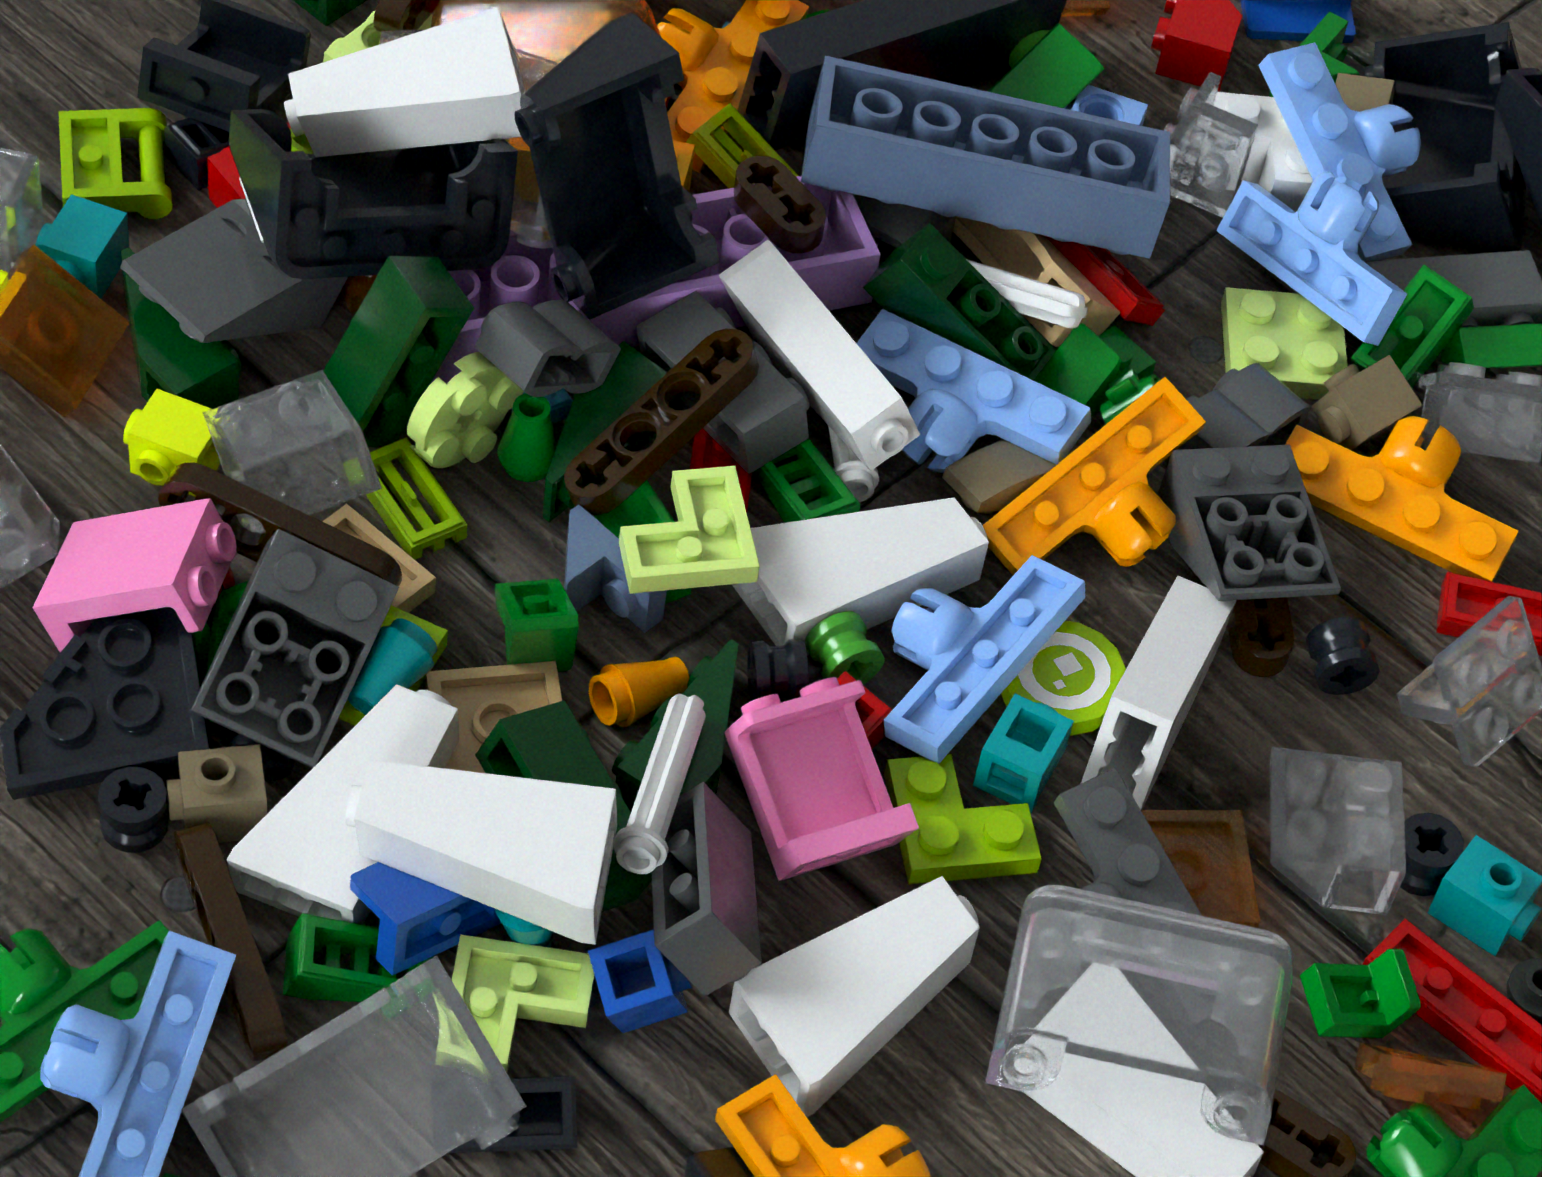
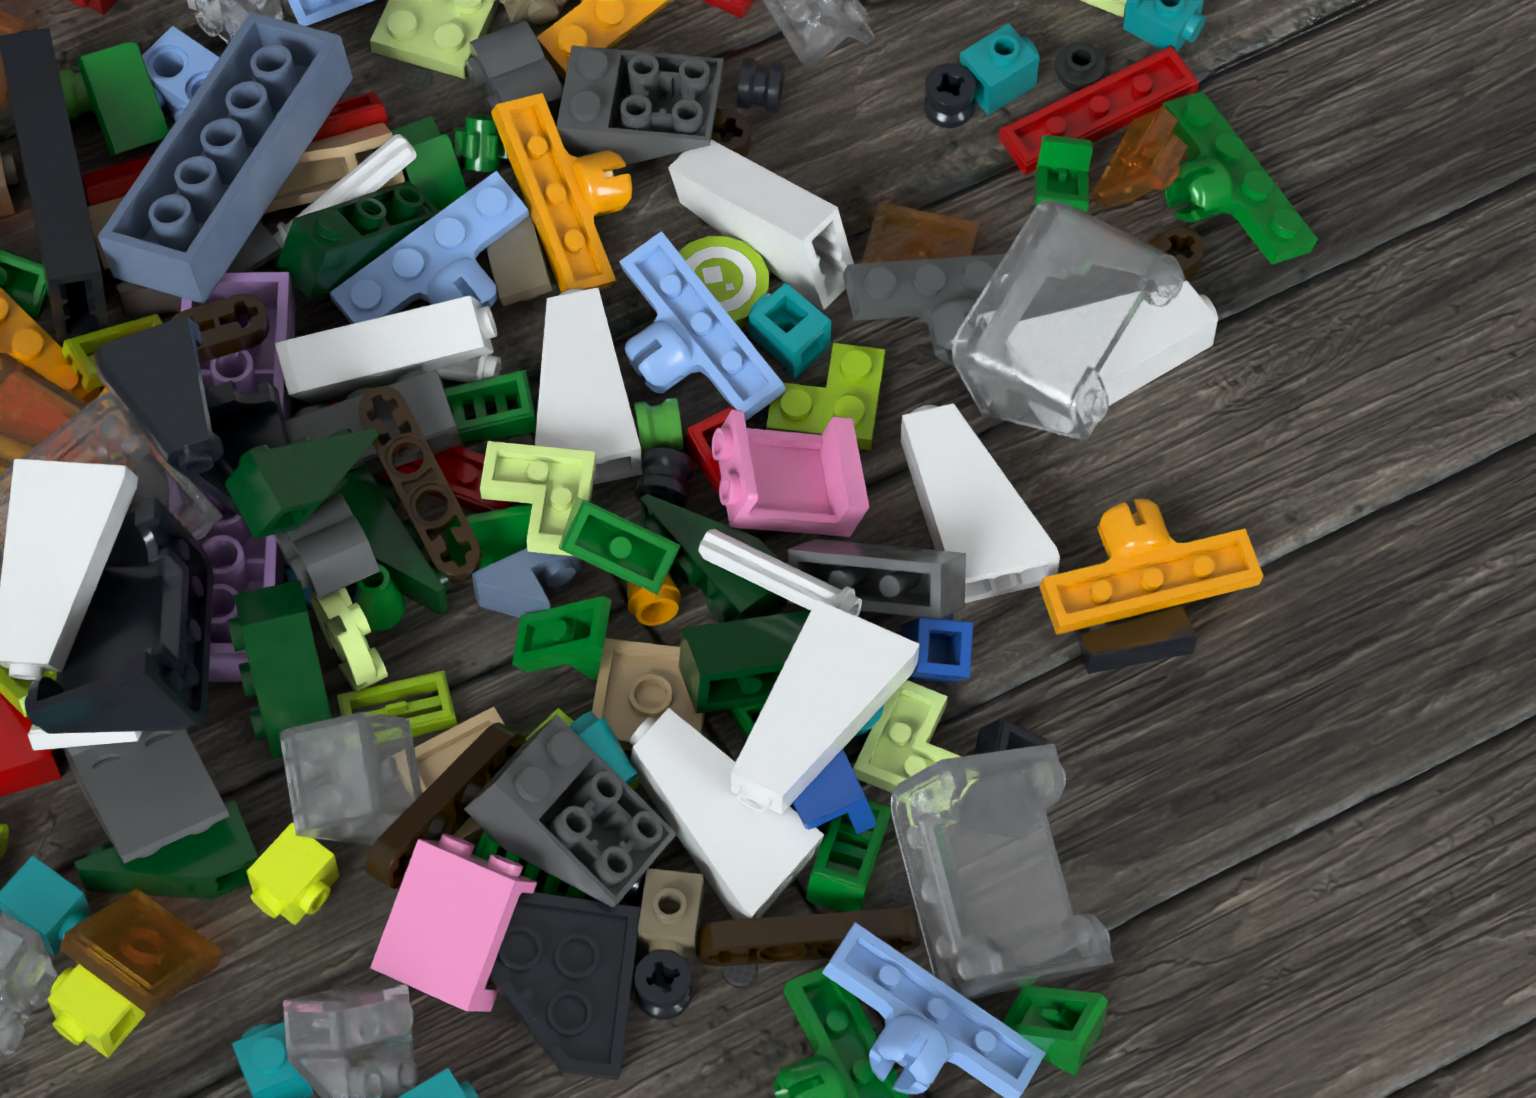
camera: 65 degrees left, 10 degrees up
(590, 277) = (287, 483): none -> dark green slope
(650, 615) = (618, 545): none -> green slope
(1338, 827) = (922, 136): clear slope -> none

